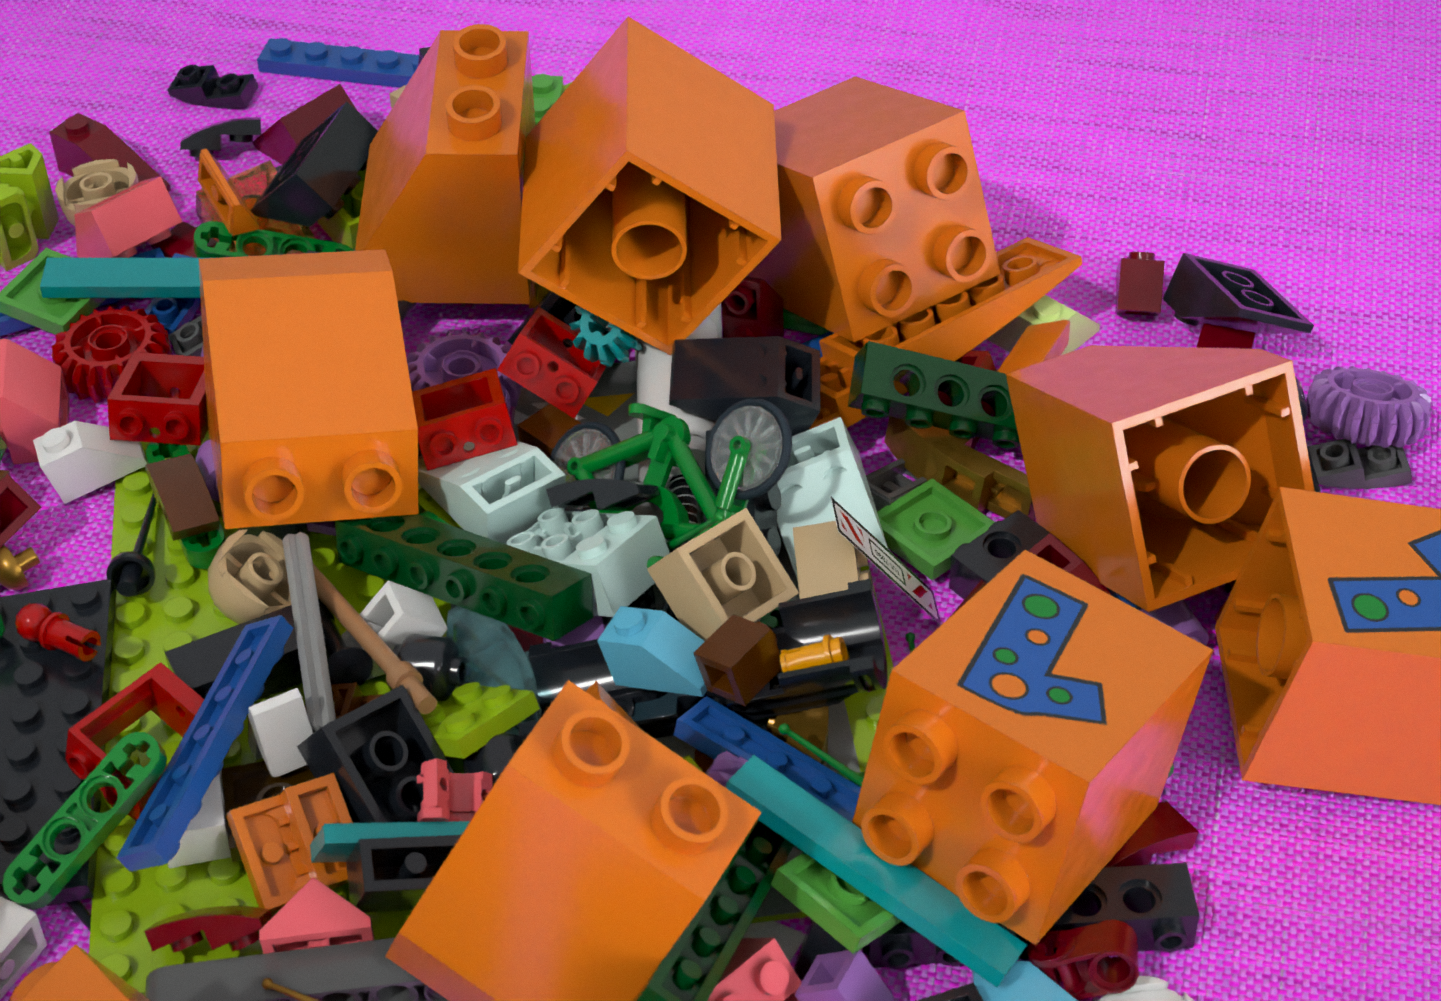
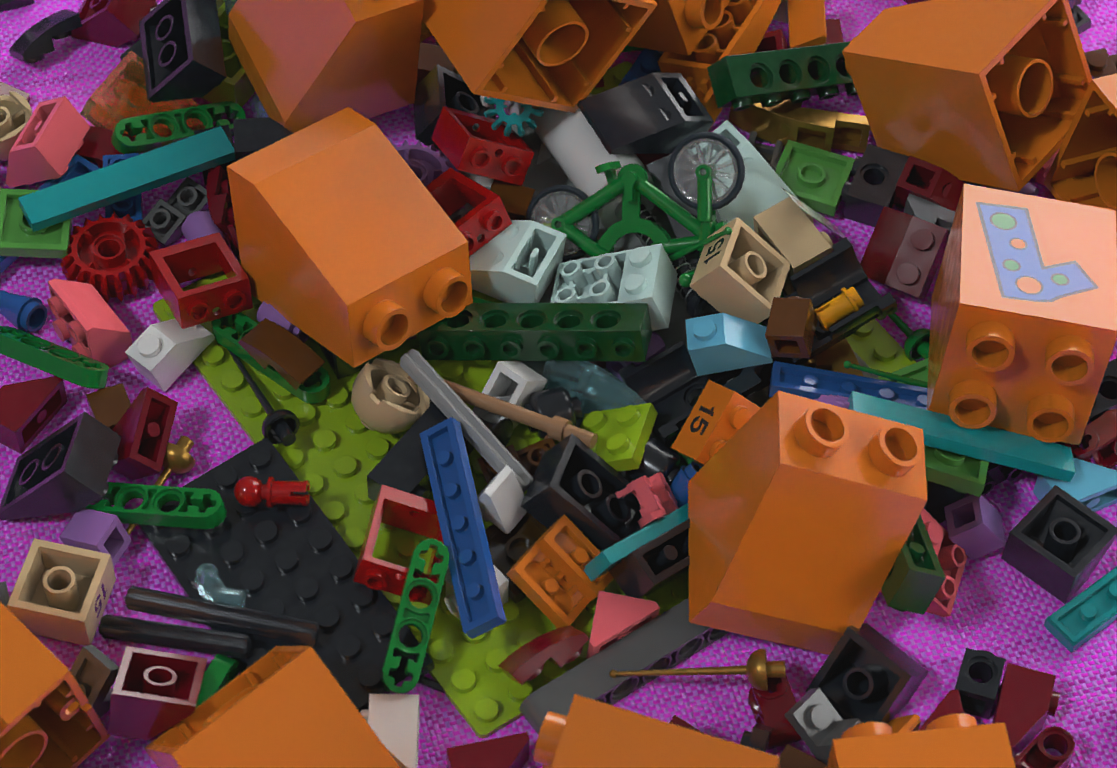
camera: 30 degrees left, 10 degrees up
(224, 196) = (123, 94): orange slope -> none
(607, 493) = (611, 234): black slope -> none

